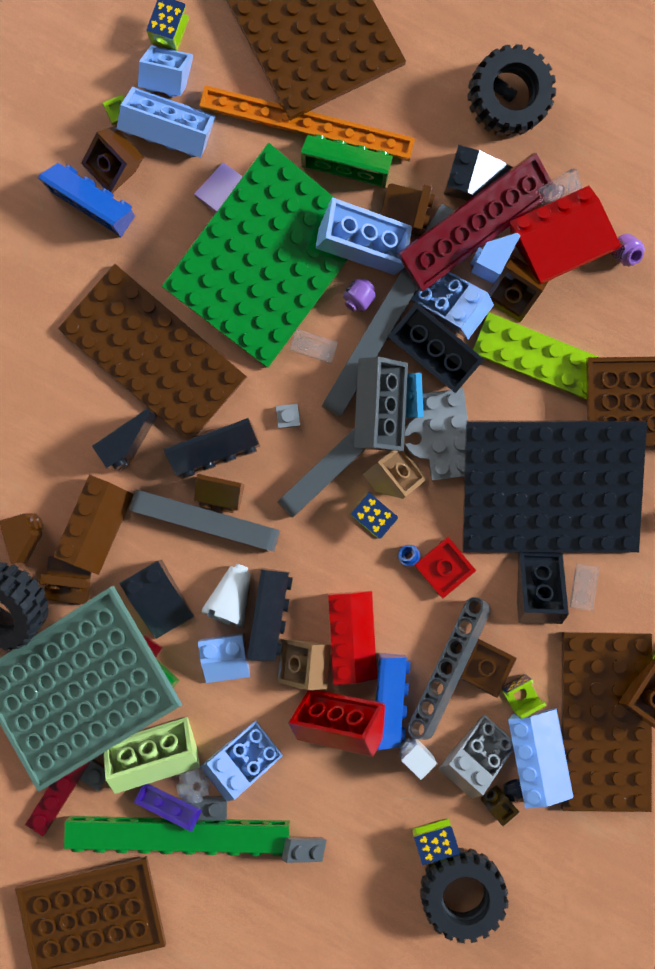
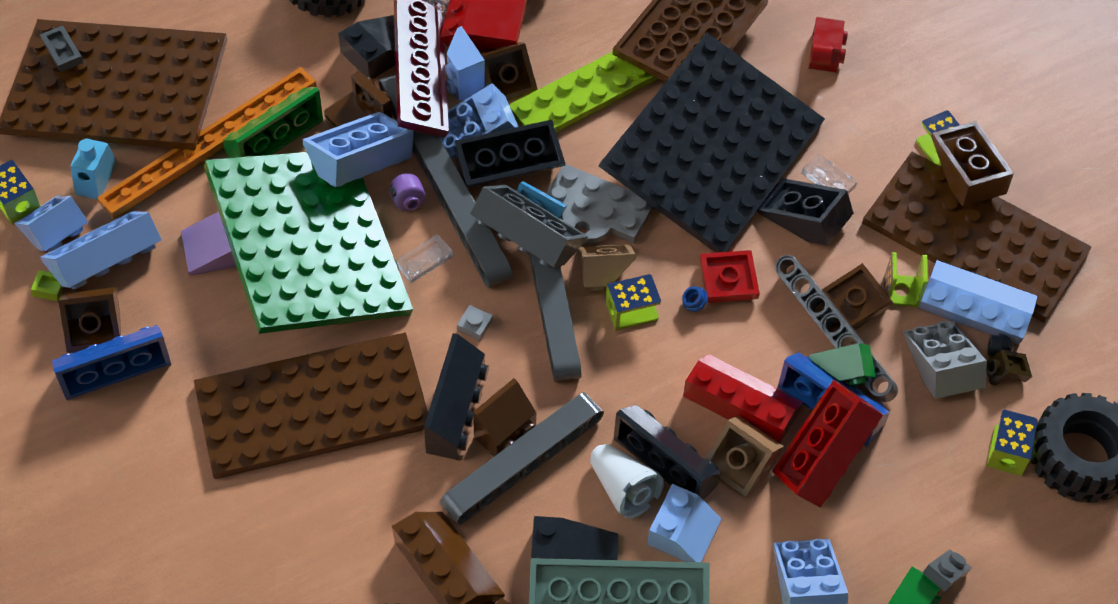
camera: 60 degrees left, 30 degrees down
(123, 443) = (386, 486): black slope -> none
(224, 62) = (95, 161): none -> medium azure torso
(415, 697) = (847, 363): none -> slope
(416, 757) = (910, 402): white brick -> none

